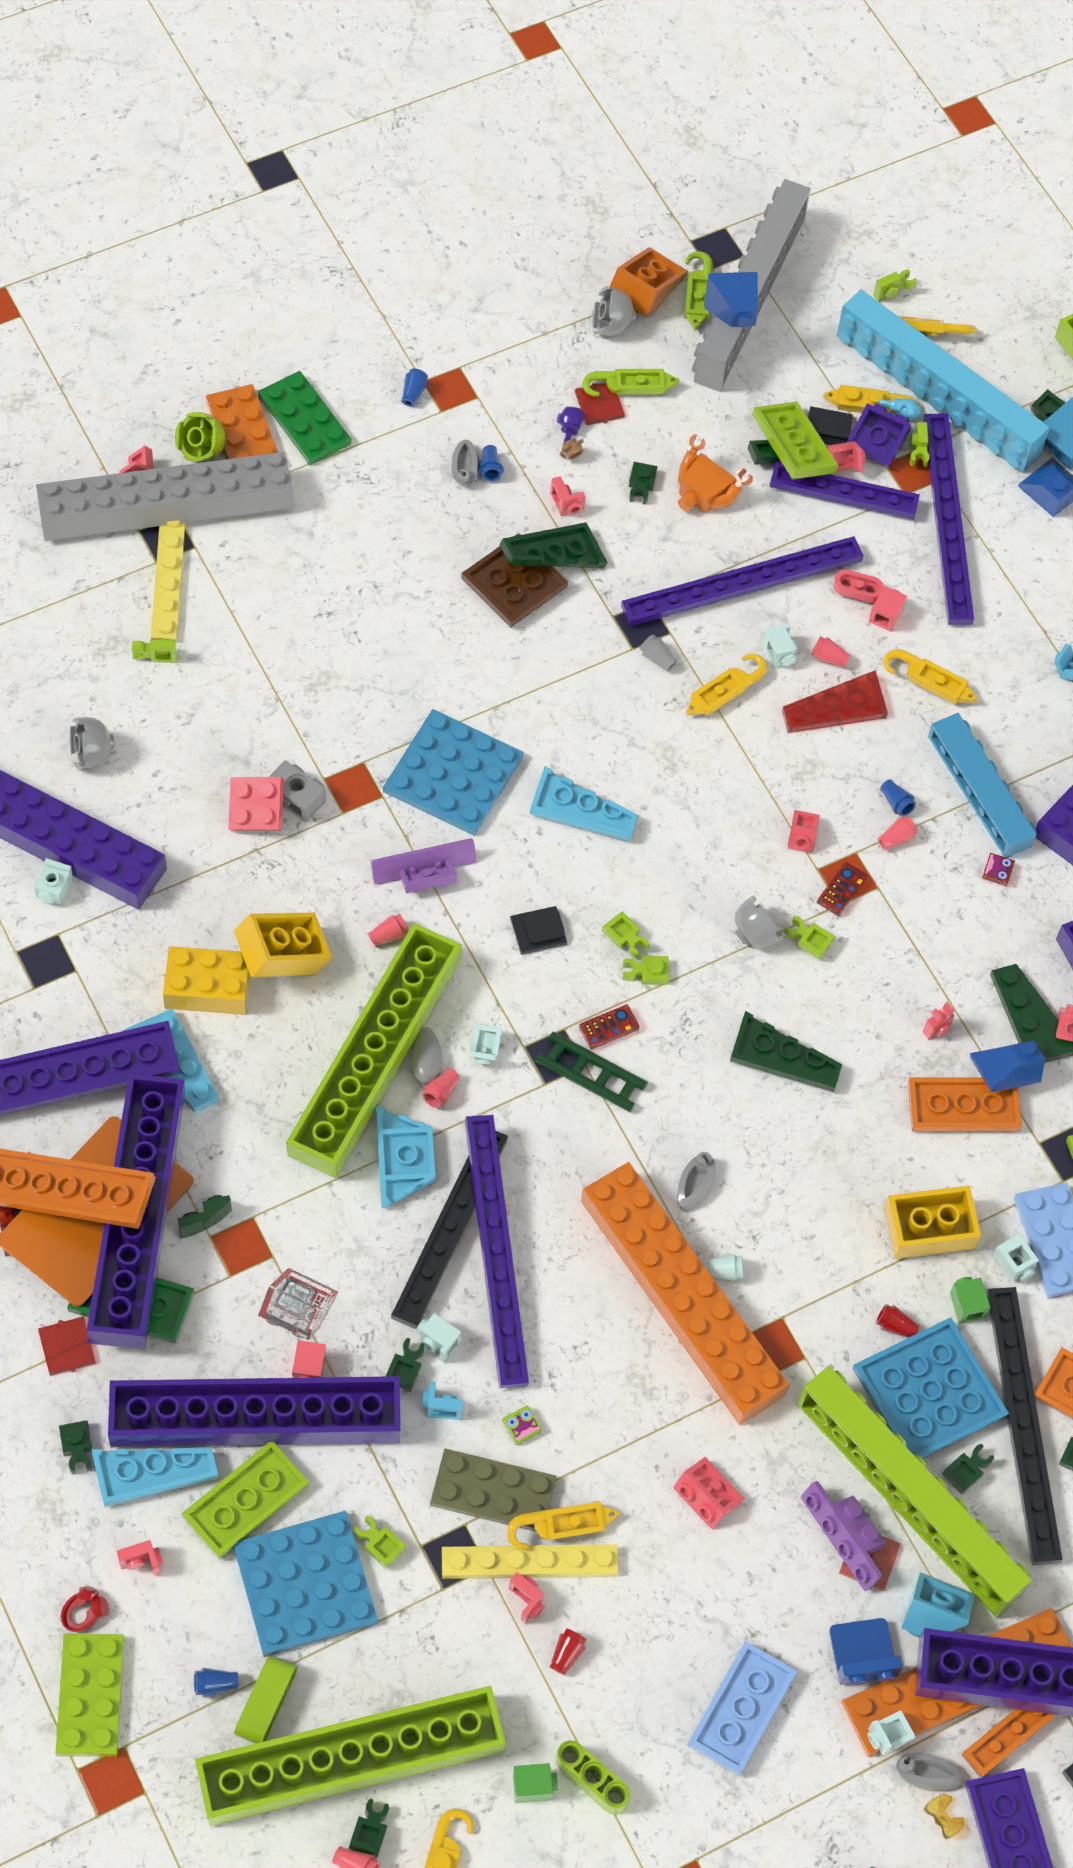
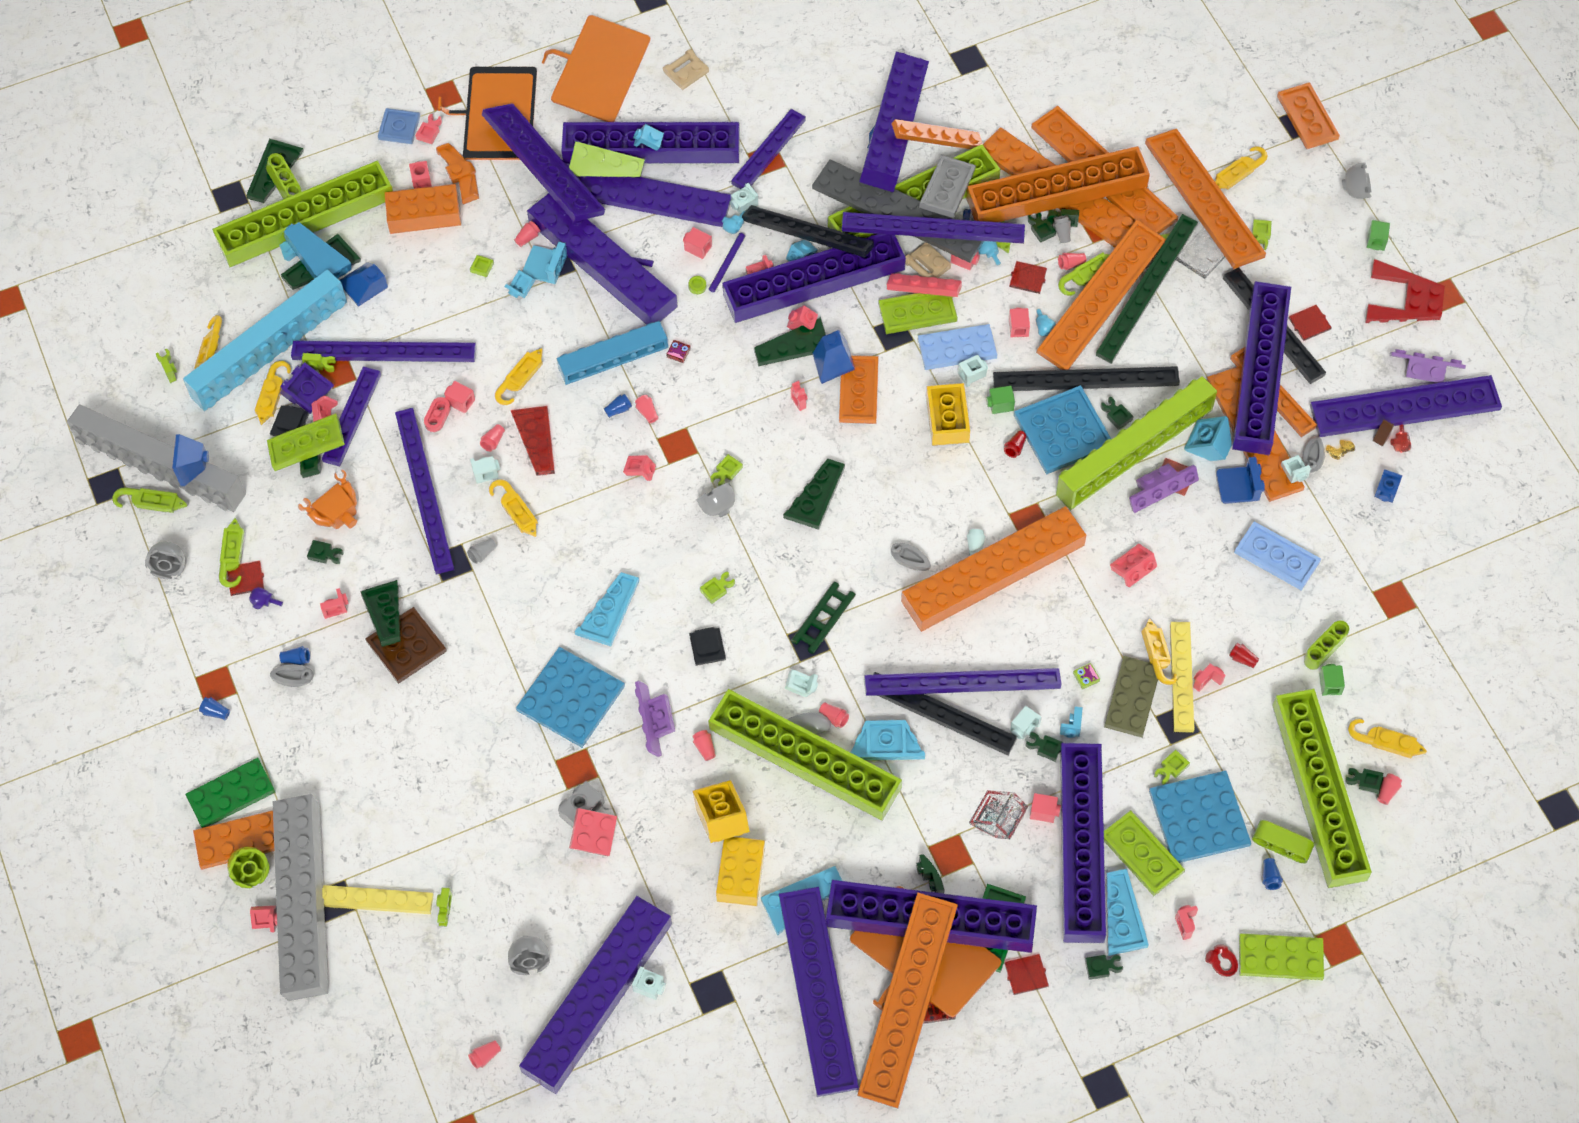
camera: 80 degrees left, 0 degrees up
(572, 449) = (290, 597): medium nougat plate -> none
(609, 1026) = (788, 604): clear red tile -> none
(648, 279) = (135, 533): orange slope -> none
(652, 970) = (744, 575): lime plate -> none
(842, 889) = (687, 448): tile -> none
(905, 407) = (287, 364): medium azure piece -> none

